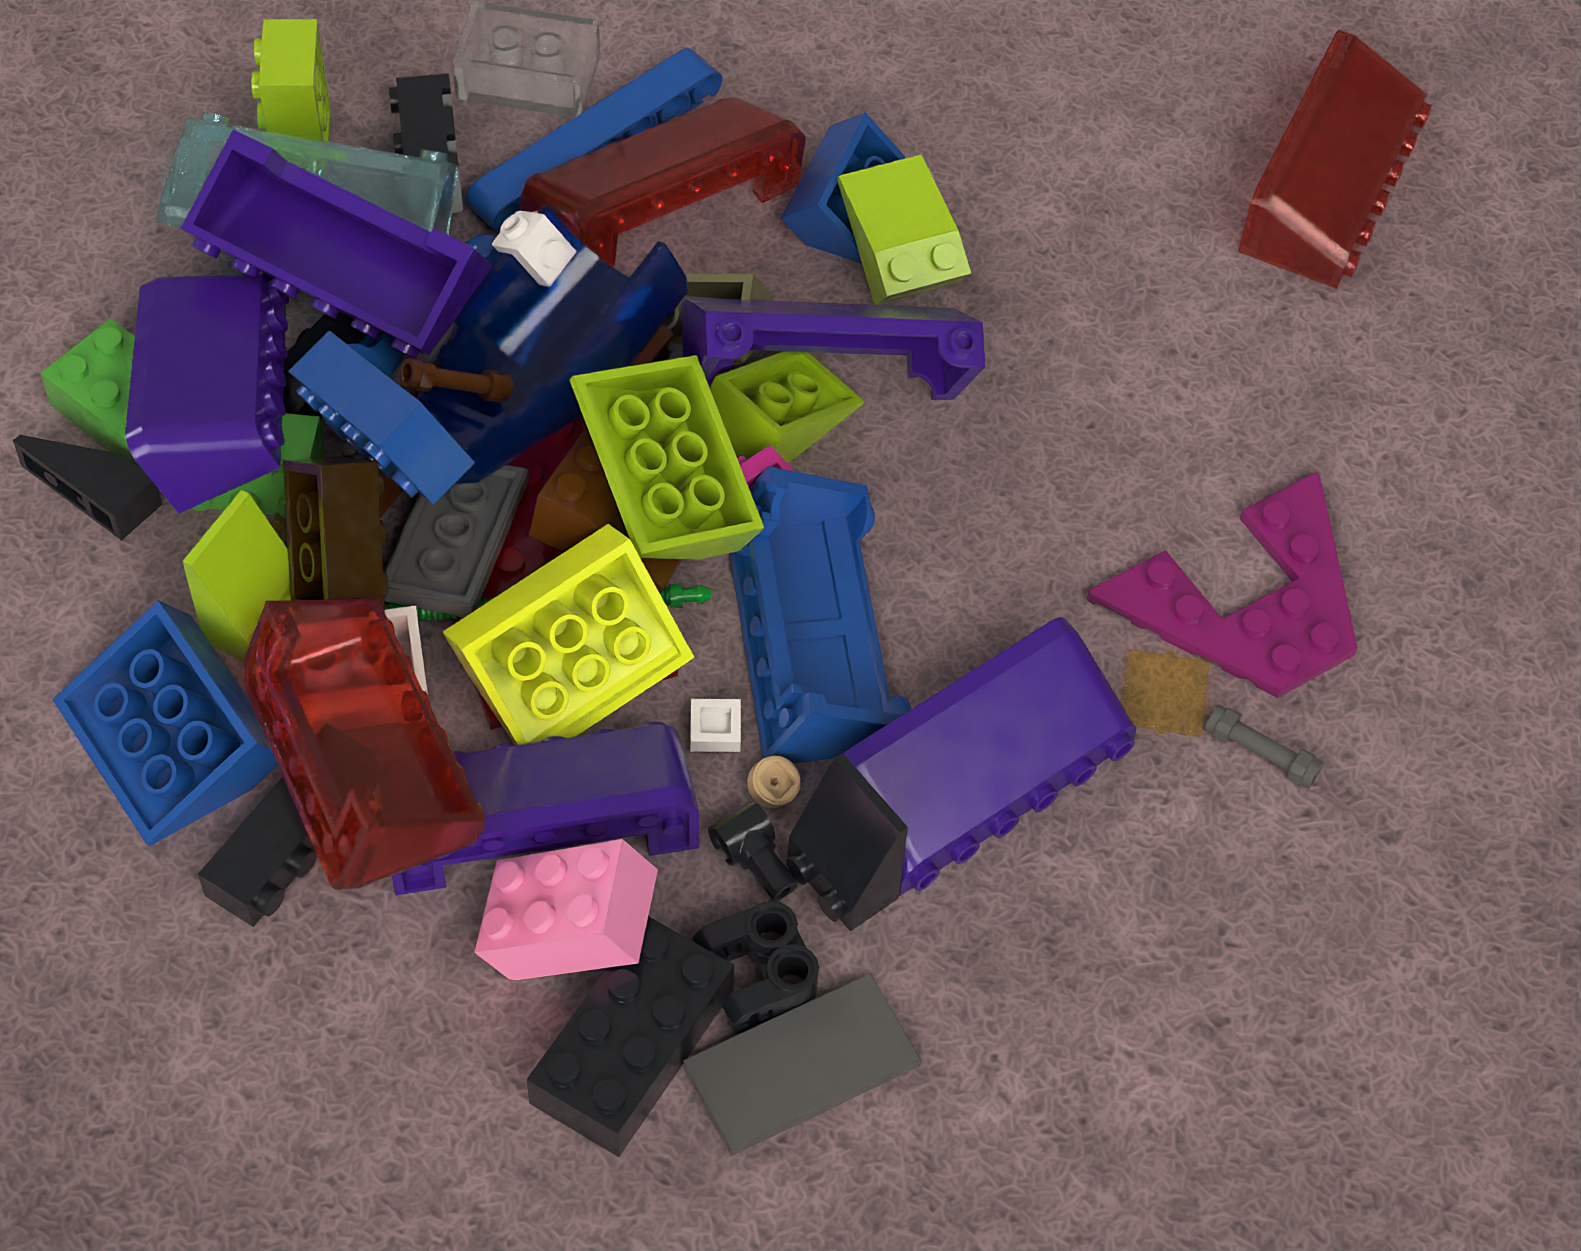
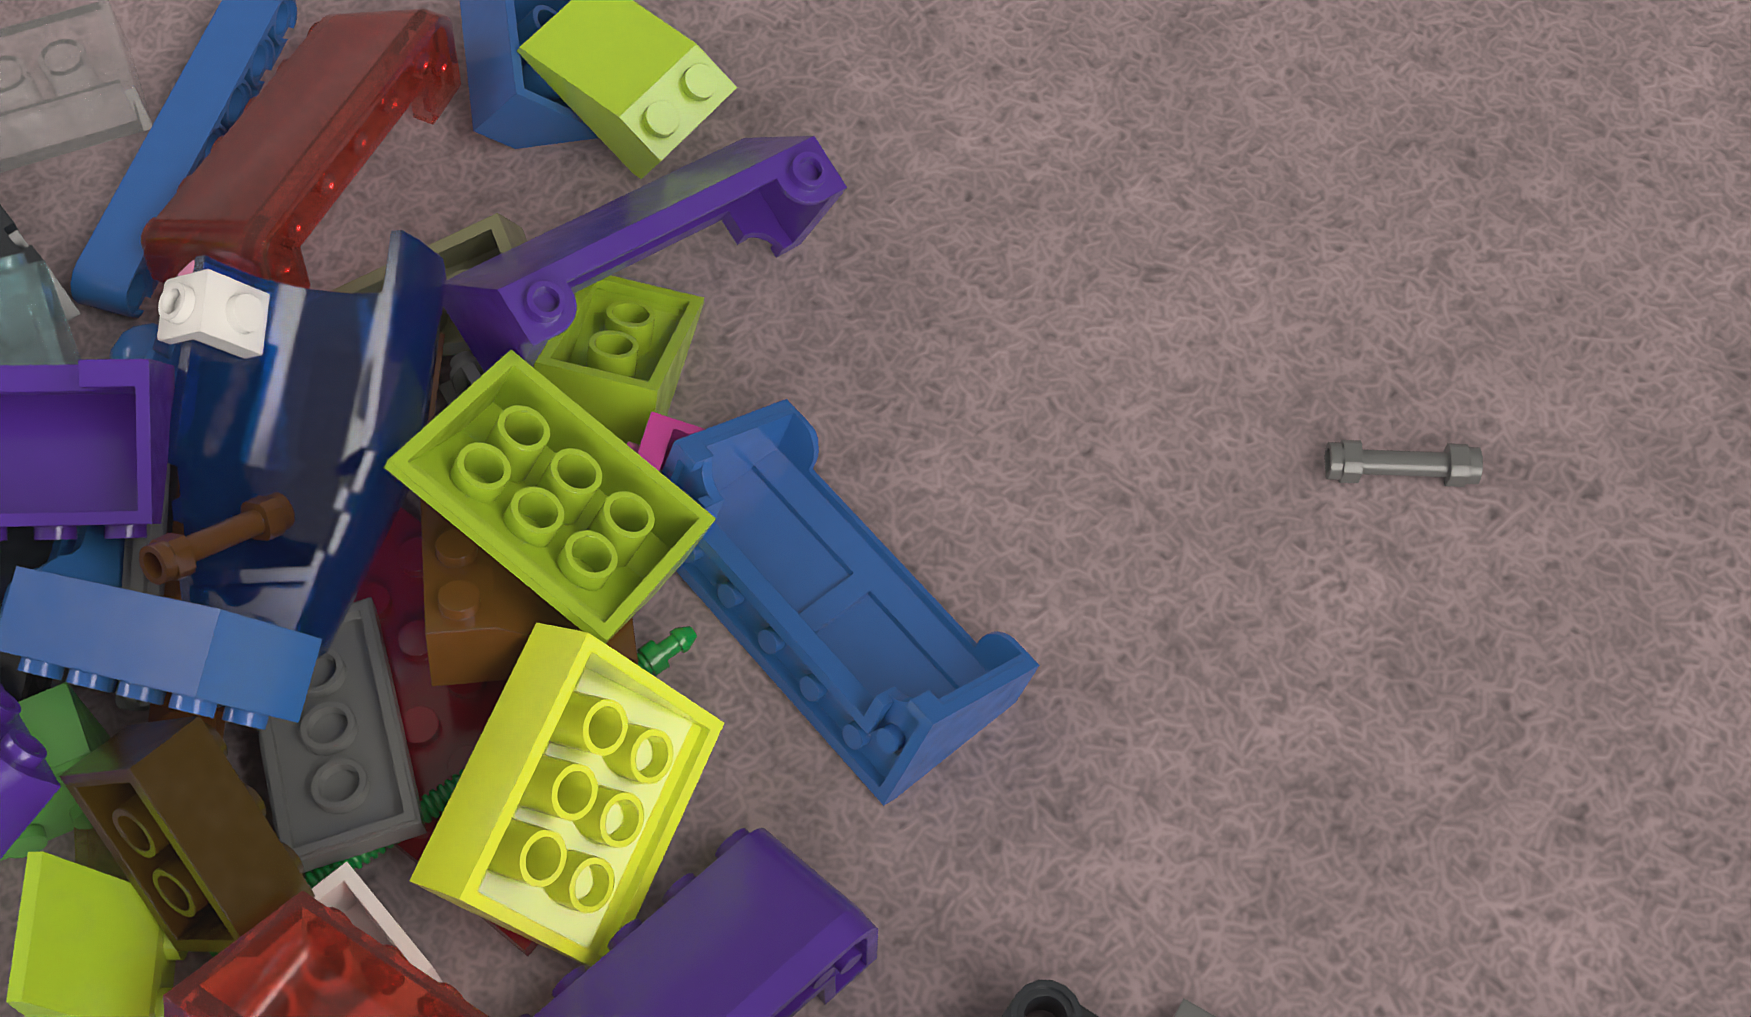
camera: 30 degrees left, 5 degrees up
(715, 725) = (800, 792): white plate -> none
(748, 840) = (935, 919): black pin -> none
(773, 782) = (913, 823): tan tile -> none
(848, 846) = (1074, 861): black slope -> none
(994, 748) = (1132, 664): dark purple windscreen -> none
(1166, 692) = (1257, 460): clear yellow piece -> none
(1275, 639) = (1329, 329): magenta wing -> none

